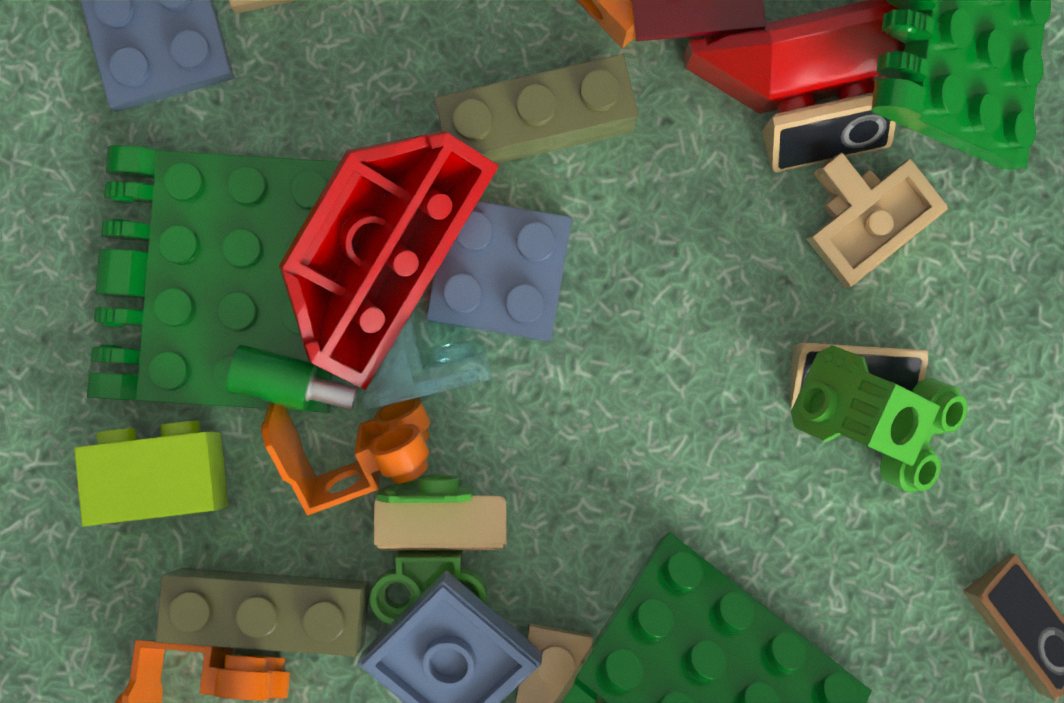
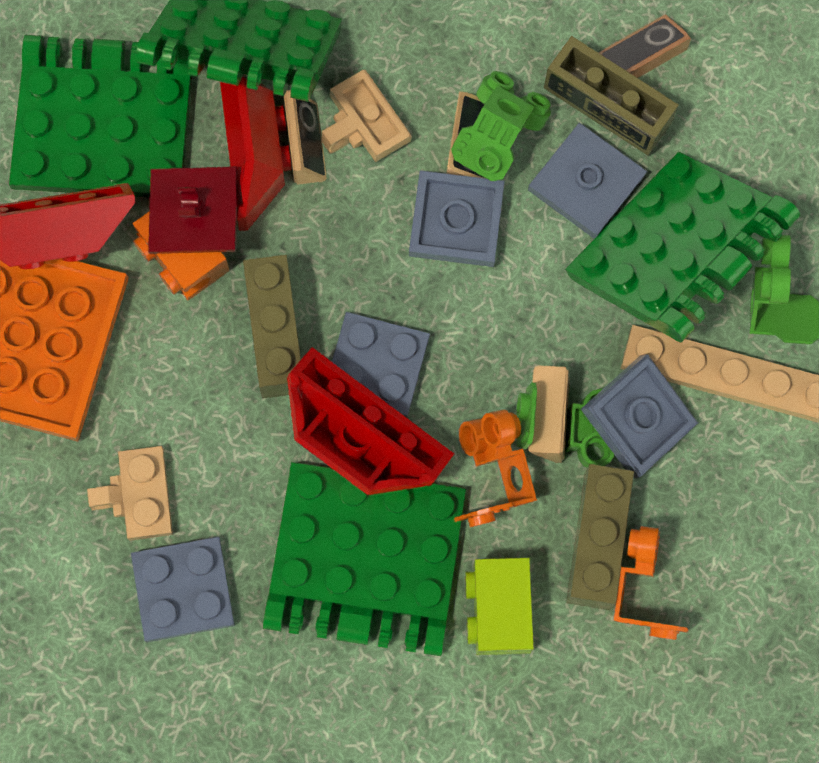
camera: 85 degrees left, 10 degrees down
(283, 380) = (443, 506): green piece -> none
(407, 375) = (447, 421): clear light blue slope -> none
(730, 364) = (456, 218): none -> sand blue plate
(812, 555) = (587, 180): none -> sand blue plate
(947, 581) = (610, 95): none -> olive brick

